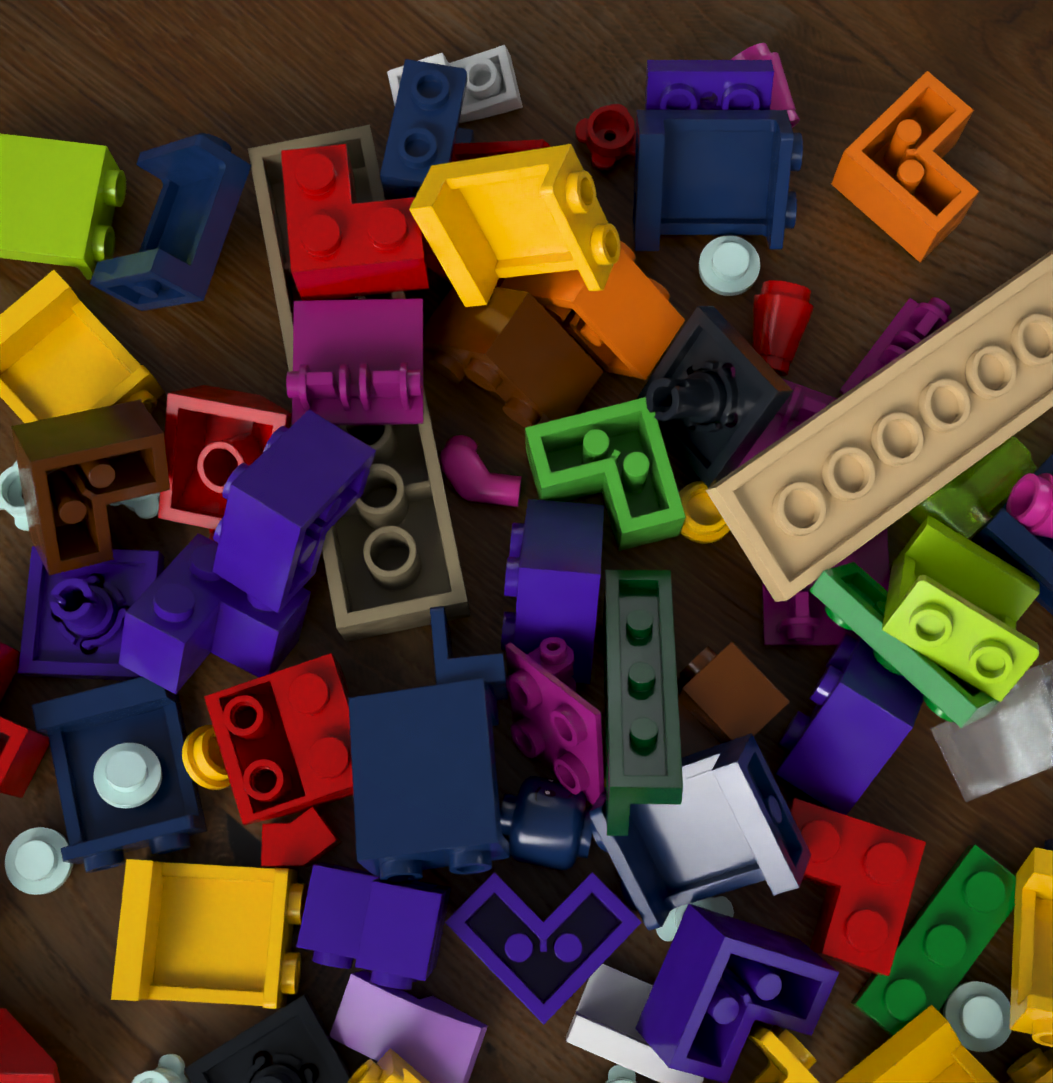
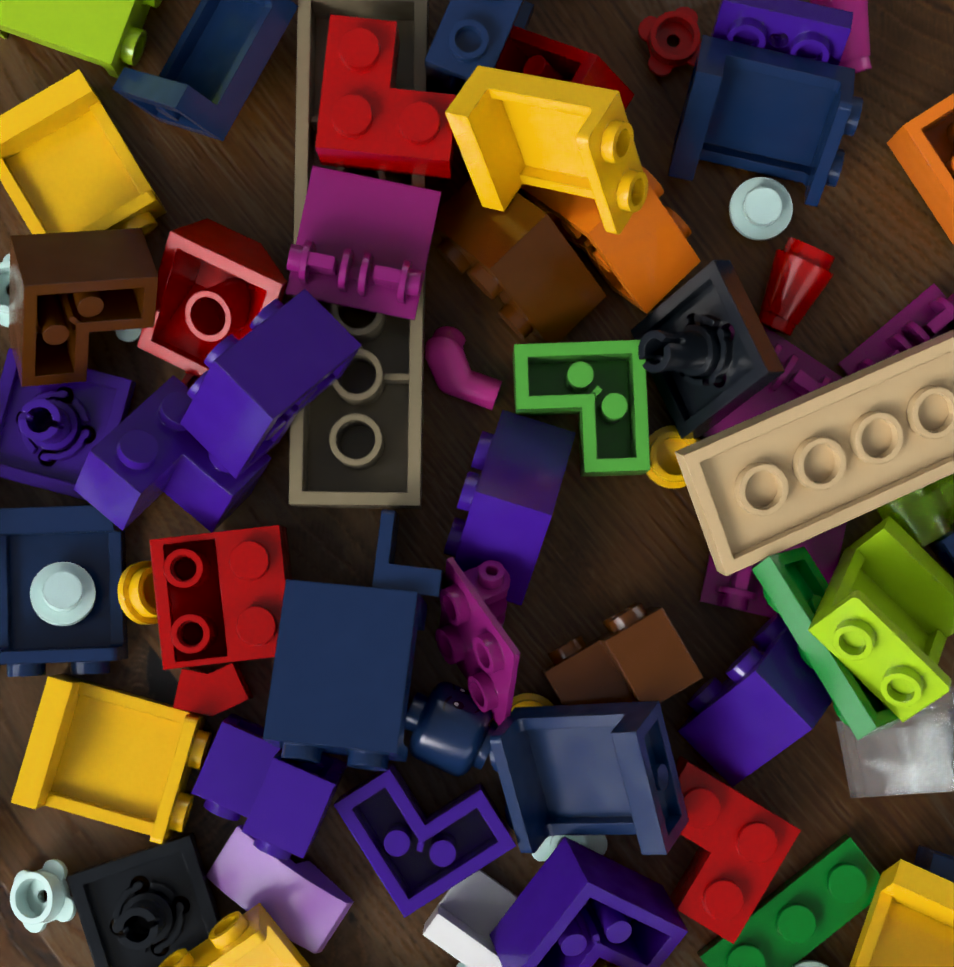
camera: 10 degrees right, 10 degrees up
(640, 695) = (564, 633): dark green fence -> none

